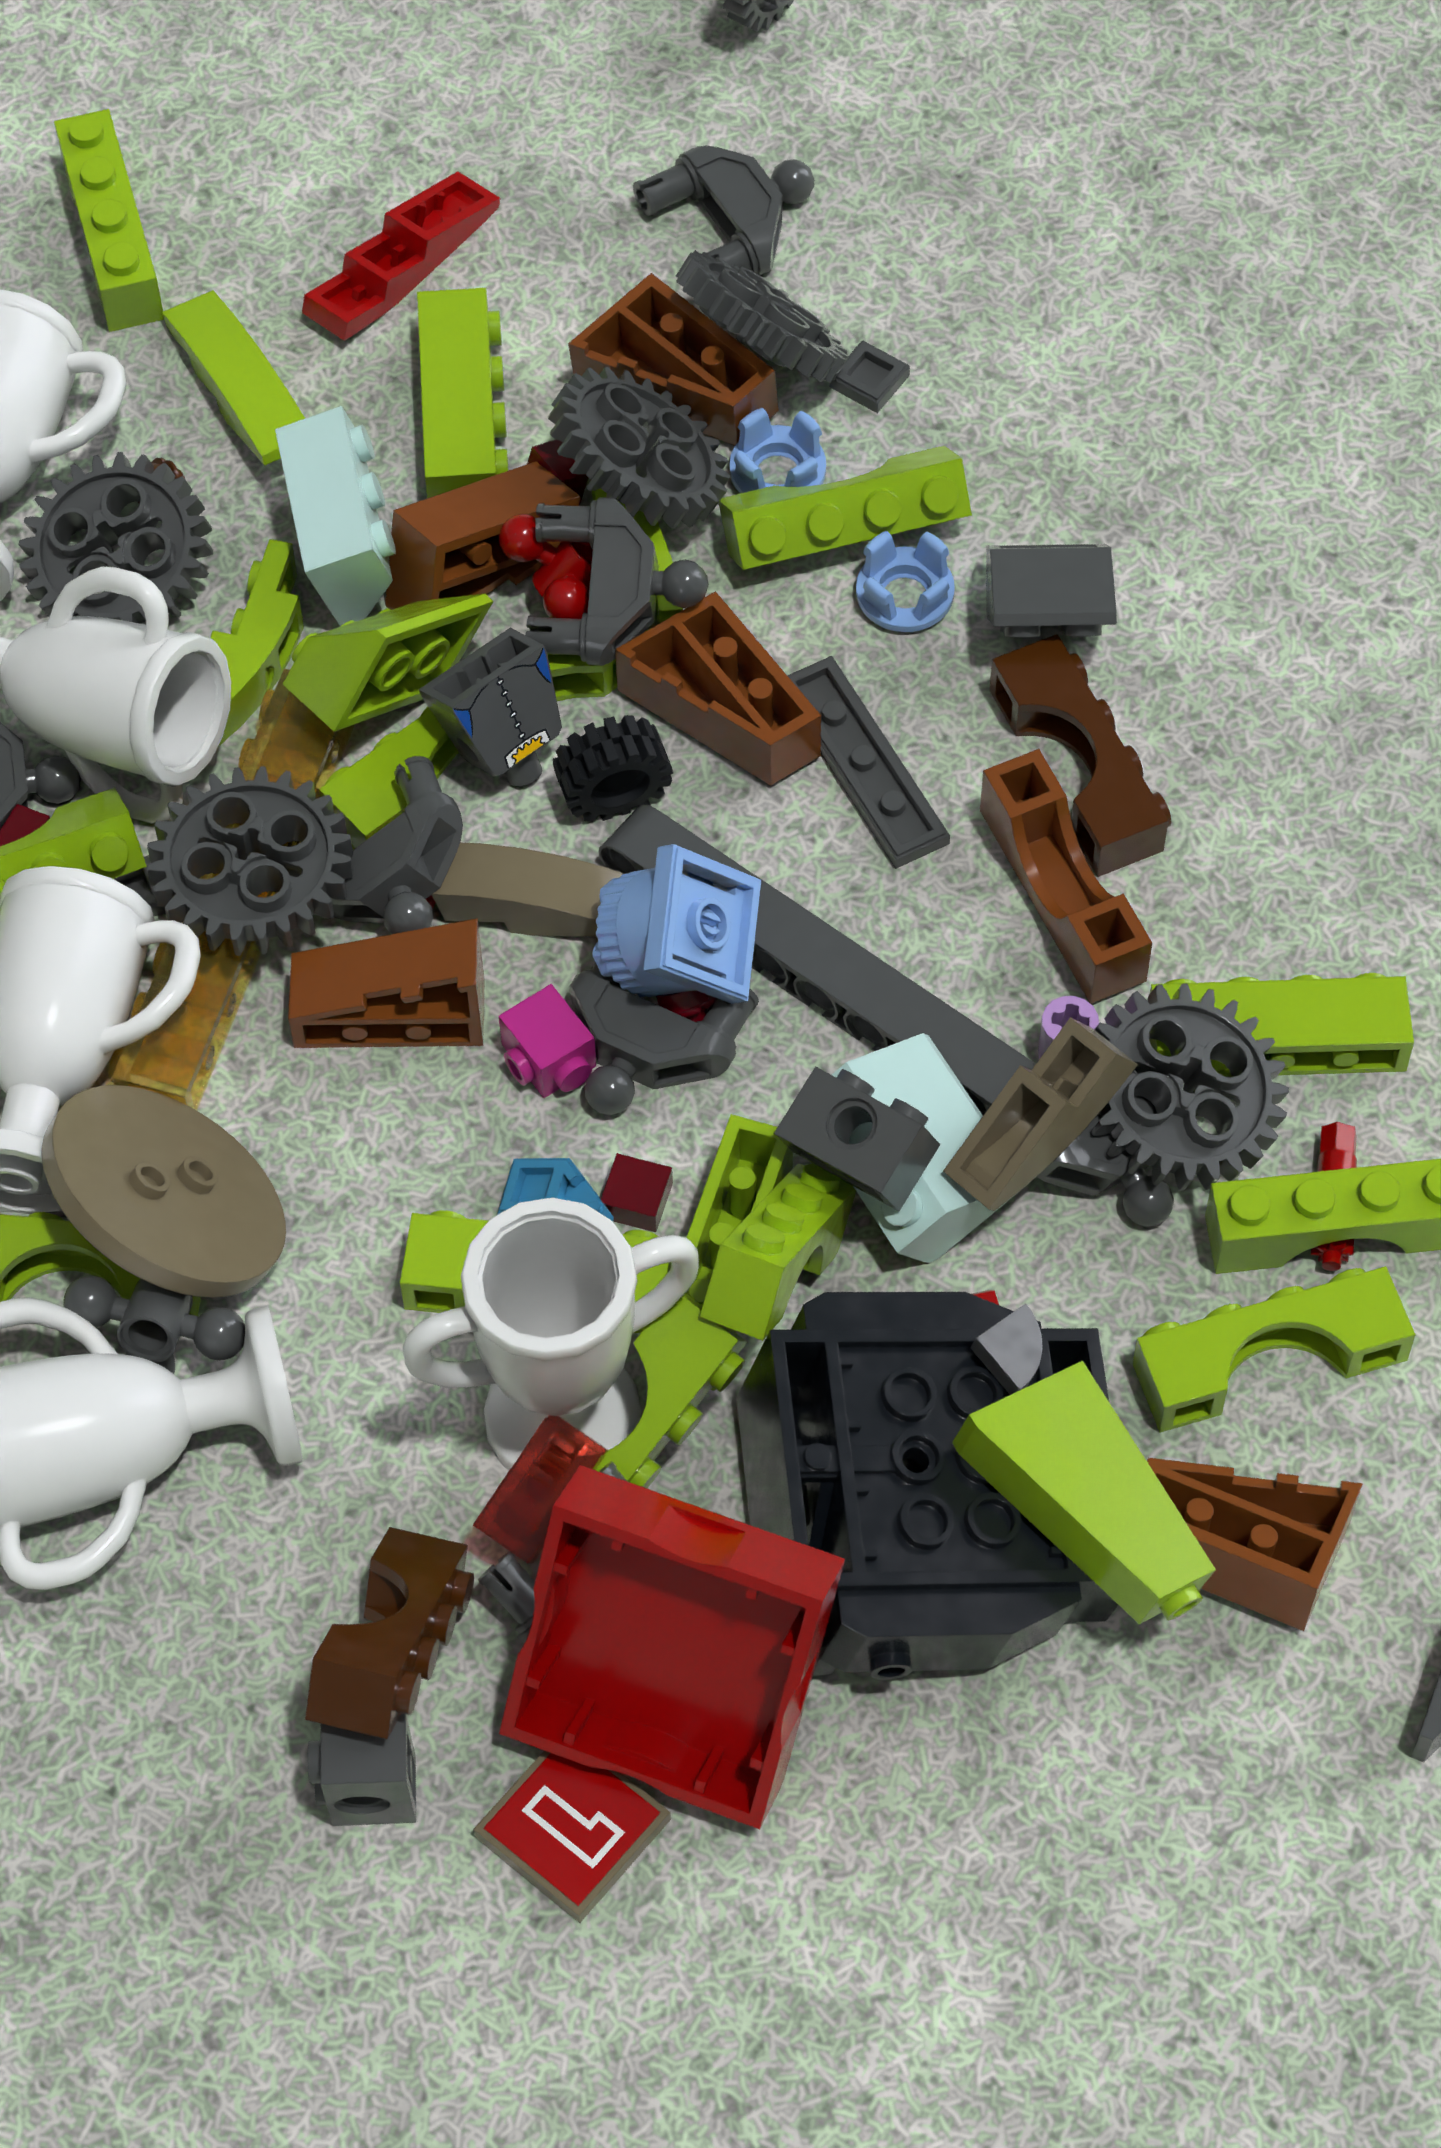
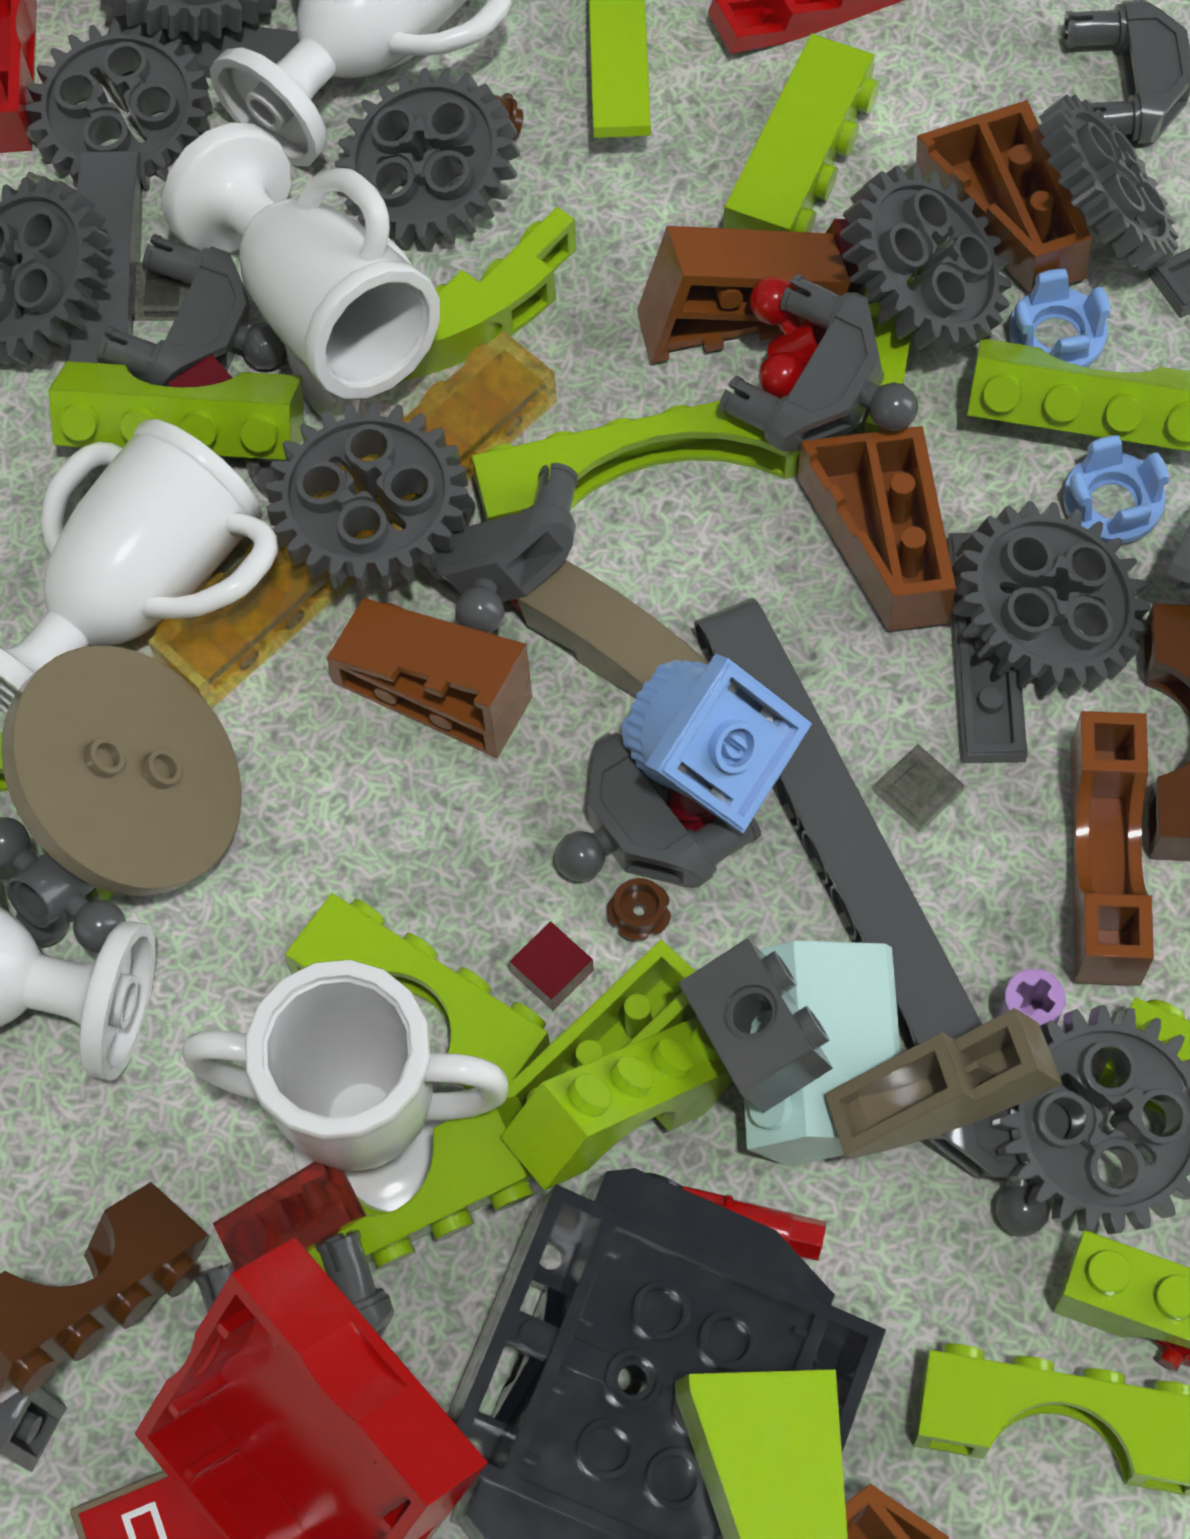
camera: 30 degrees right, 5 degrees up
(337, 512) = (620, 206): light aqua slope -> none
(382, 658) = (587, 360): lime slope -> none
(499, 706) = (667, 449): dark grey torso -> none
(547, 1043) = (546, 786): dark pink brick -> none
(549, 1178) = (474, 932): dark azure tile -> none
(612, 768) = (743, 552): black tyre -> none
(683, 1096) = (639, 893): none -> reddish brown plate
(871, 904) = (918, 788): none -> clear smoke tile
(900, 694) = (1050, 598): none -> dark grey gear
(1012, 1349) = (783, 1316): flat silver tile -> none

